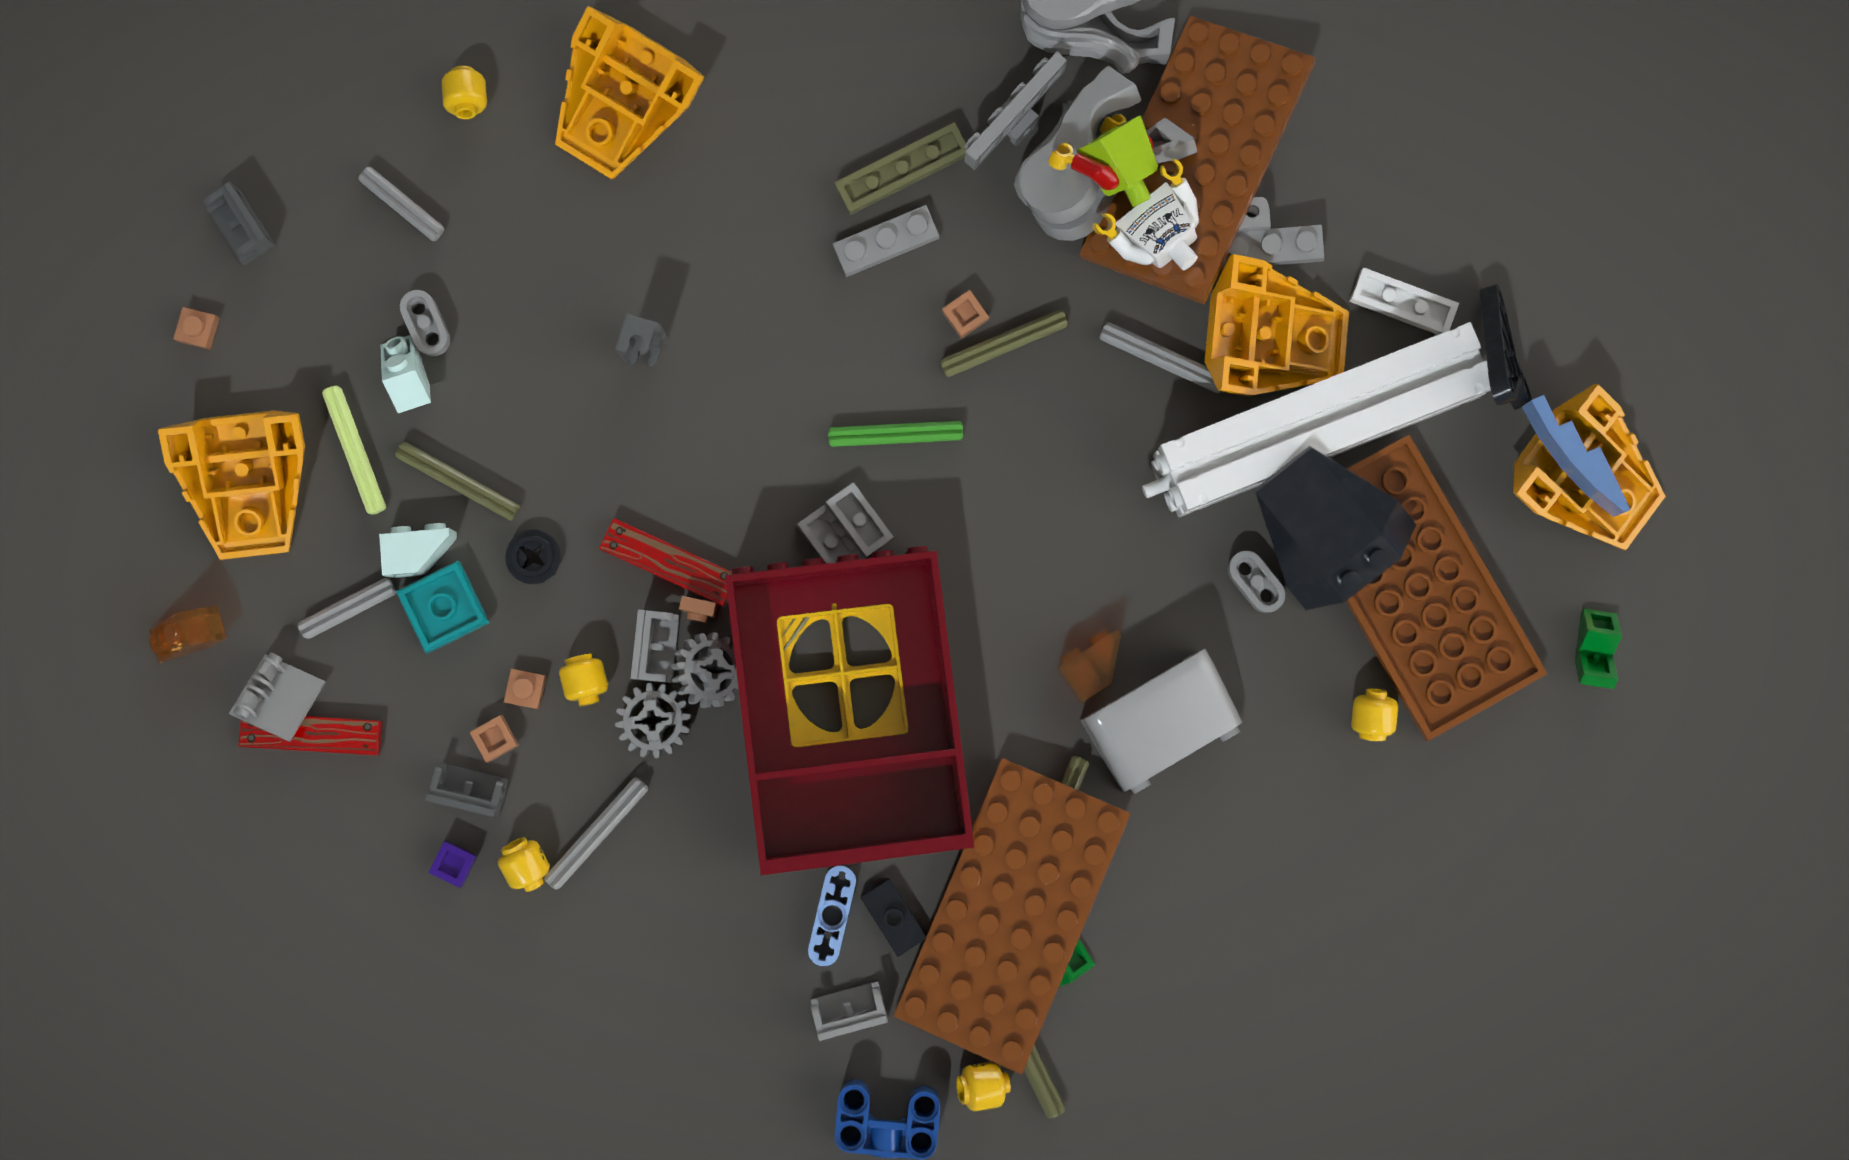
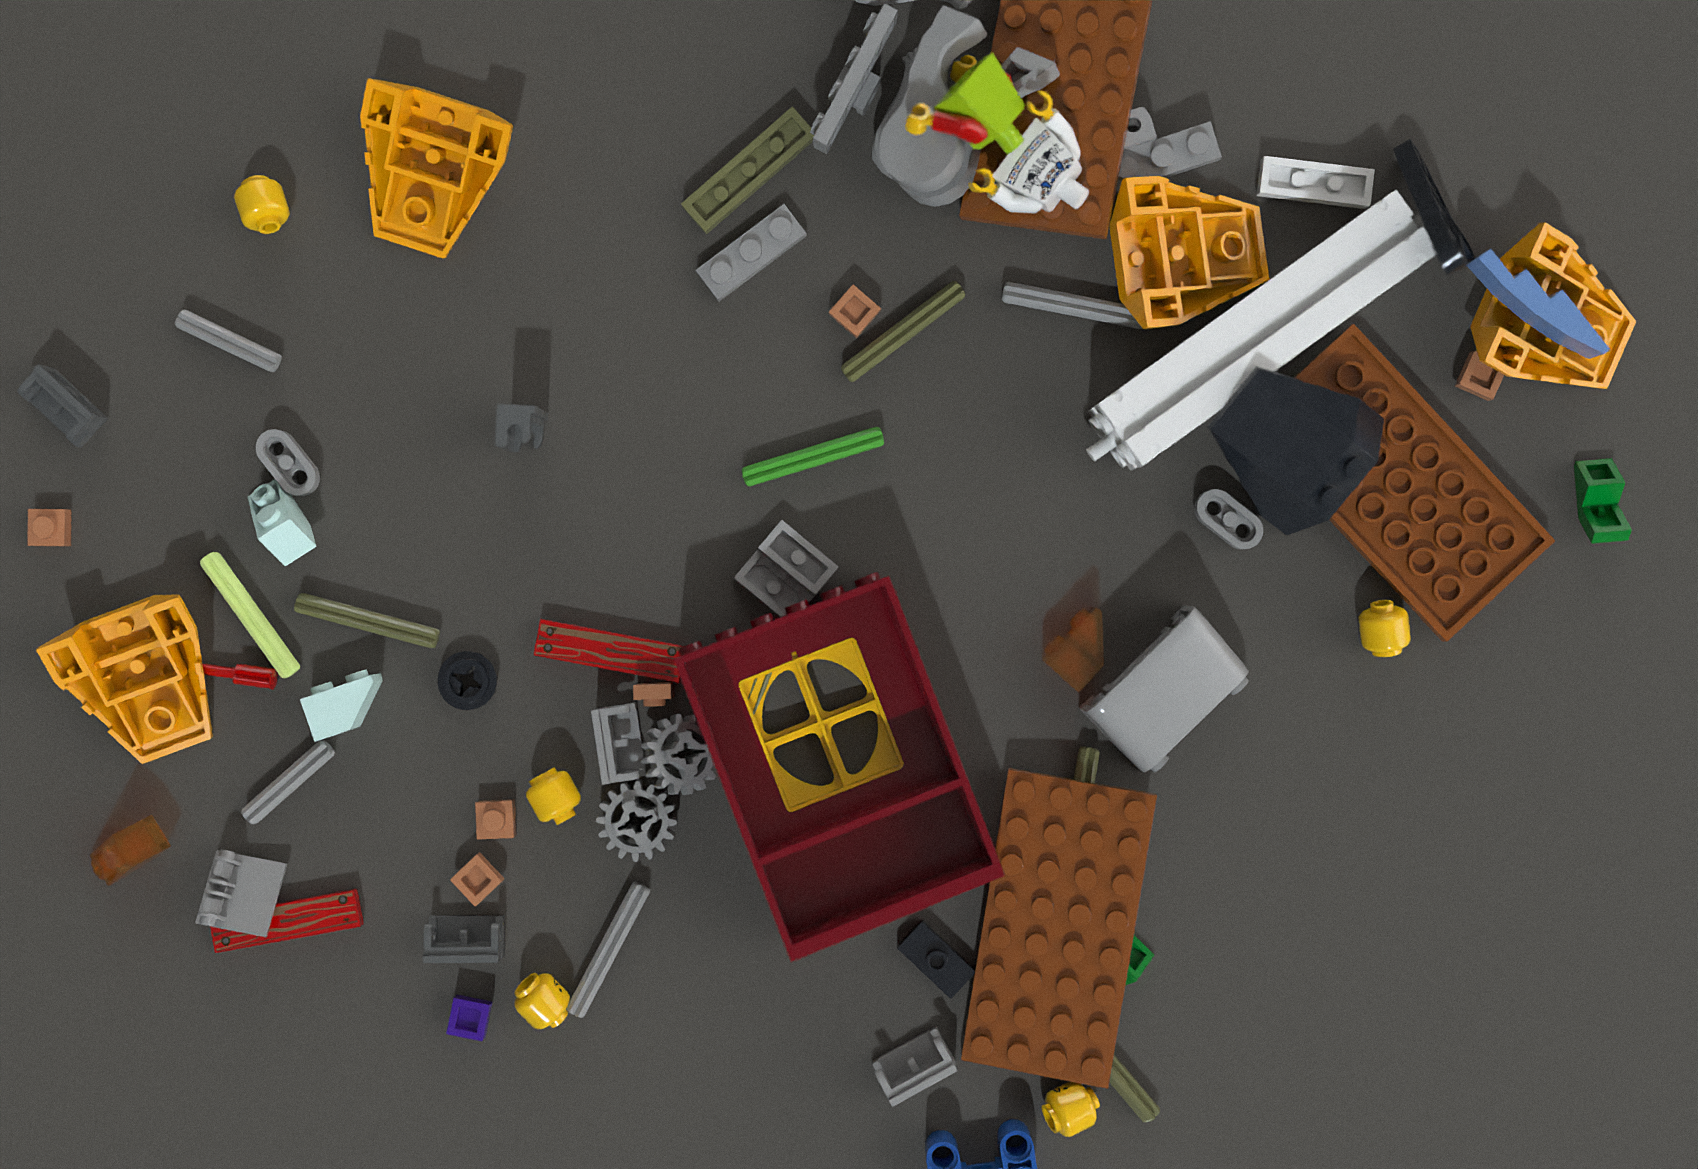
camera: 10 degrees left, 5 degrees up
(335, 502) = (245, 674): none -> red axle
(442, 607) = (387, 756): teal plate -> none
(817, 939) = (883, 999): light blue beam -> none
(1511, 511) = (1479, 378): none -> nougat plate

